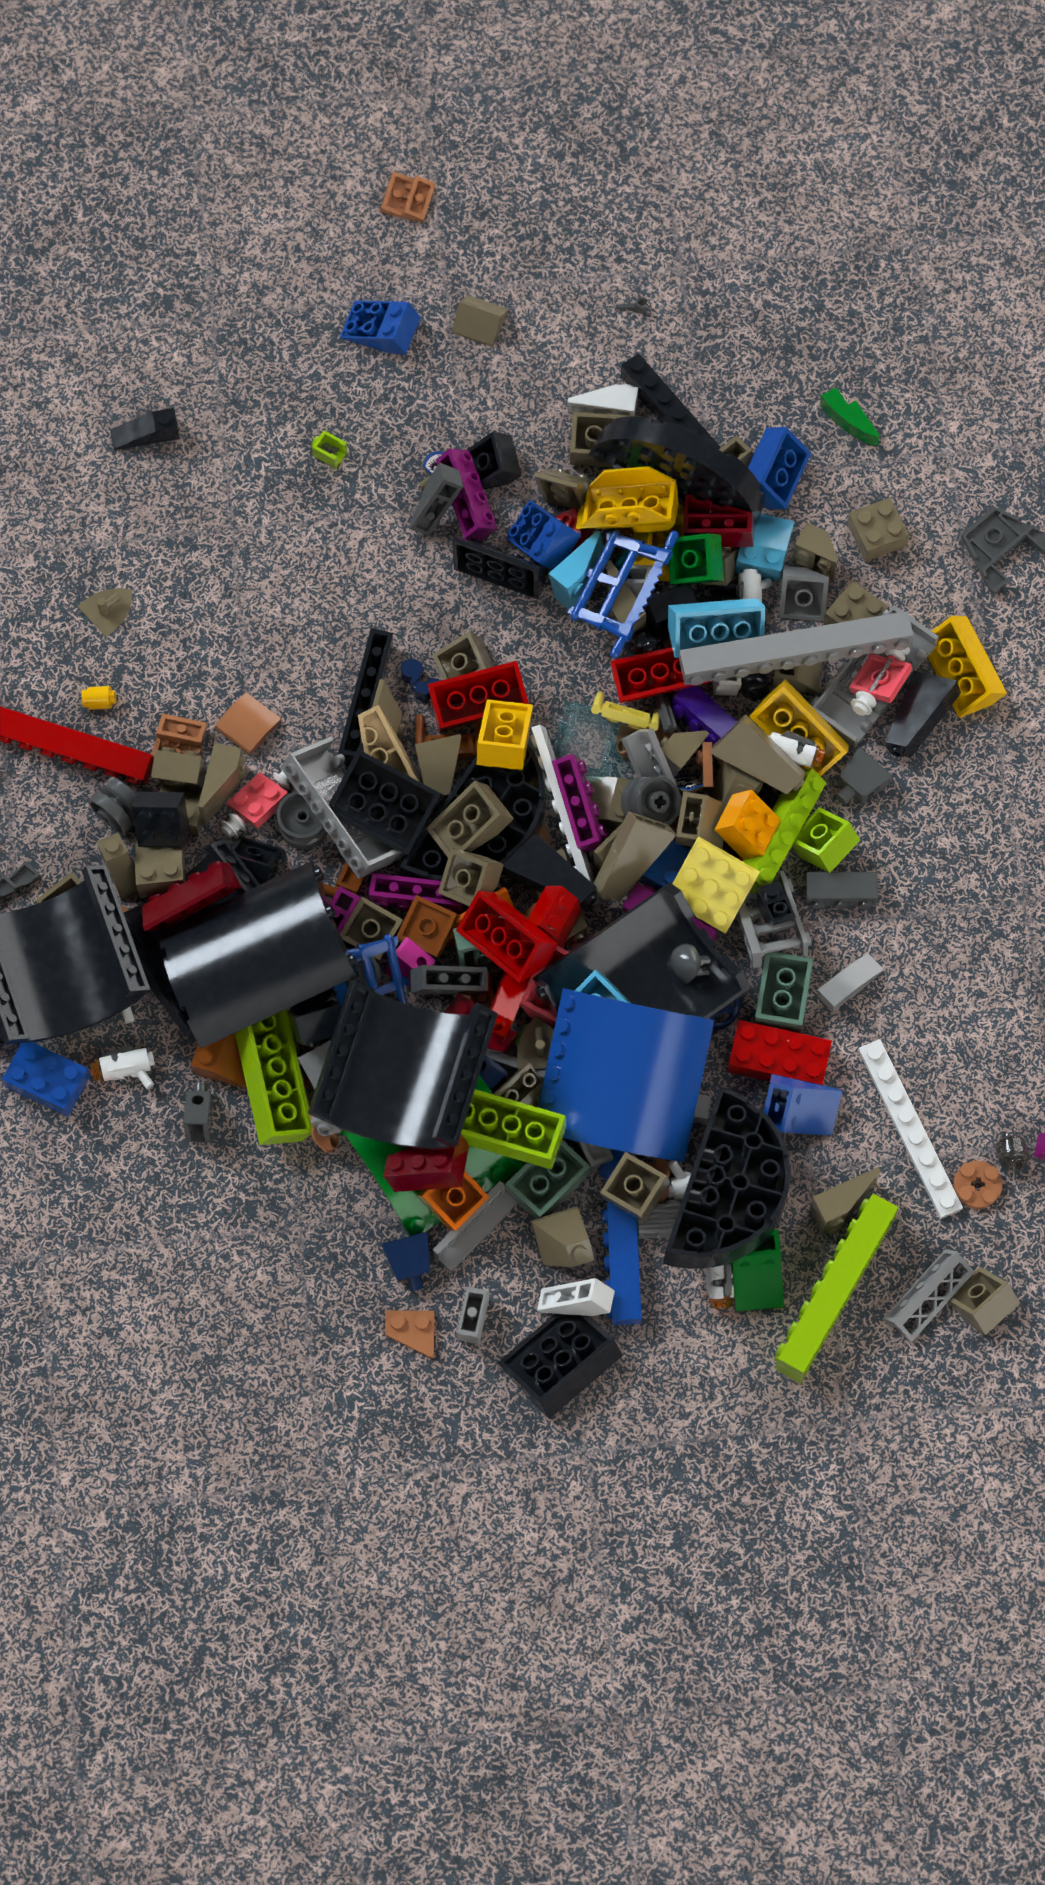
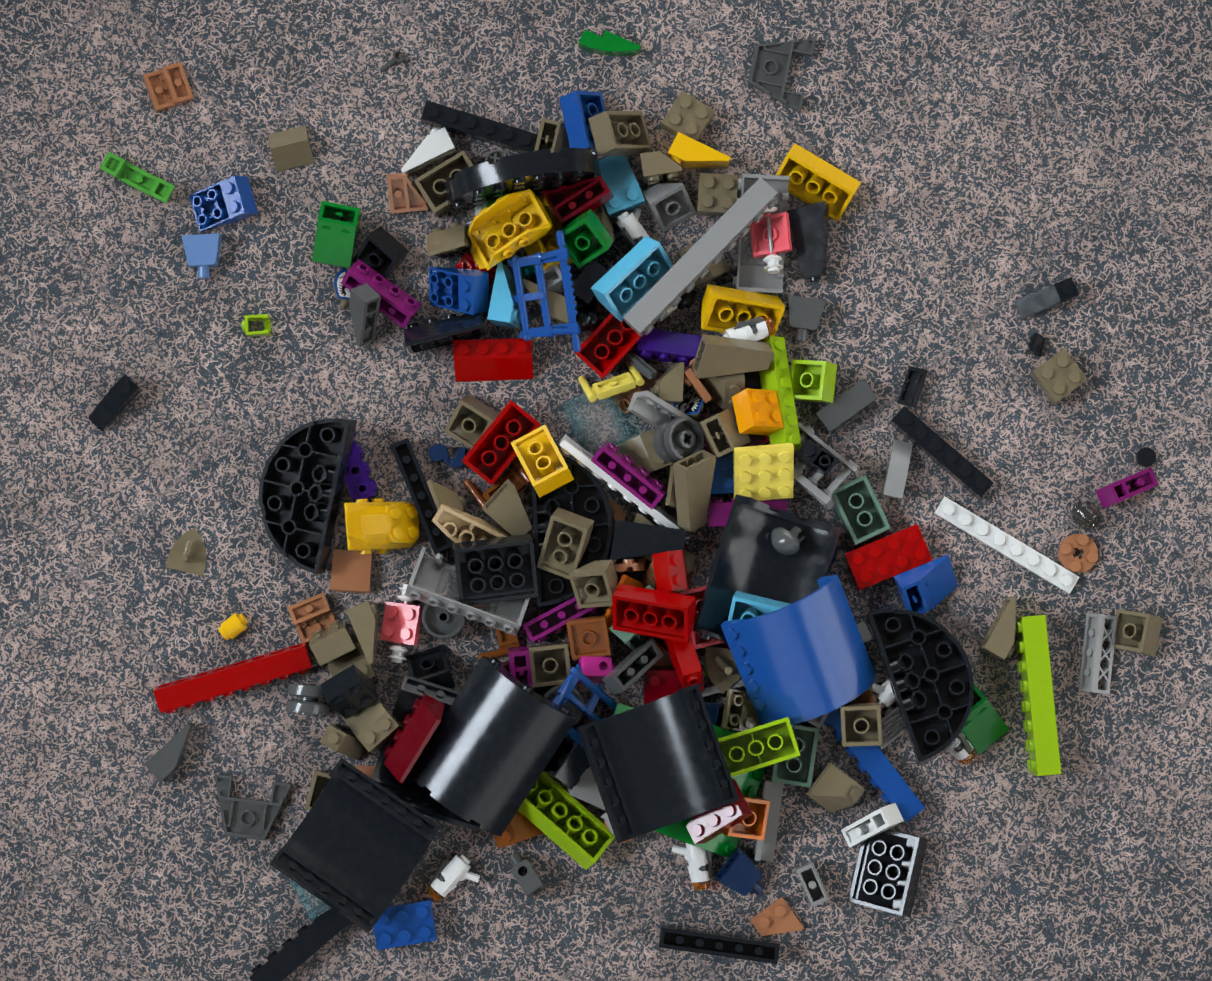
camera: 35 degrees left, 15 degrees up
(261, 614) = (304, 490): none -> black brick
(303, 694) = (380, 525): none -> yellow slope
(317, 253) = (137, 178): none -> bright green slope
(322, 626) = (357, 476): none -> dark purple brick
(328, 354) = (202, 252): none -> medium blue torso
(336, 1309) = (719, 944): none -> black brick
(375, 1221) = (699, 865): none -> white piece
(465, 416) = (336, 234): none -> green slope
(516, 889) = (629, 565): none -> nougat plate
(528, 622) = (493, 359): none -> red slope
(554, 423) = (404, 195): none -> nougat wing
(800, 493) = (620, 133): none -> dark tan brick
(861, 564) = (695, 155): none -> yellow slope
(906, 994) = (941, 452): none -> black brick
(922, 915) = (912, 387): none -> black plate

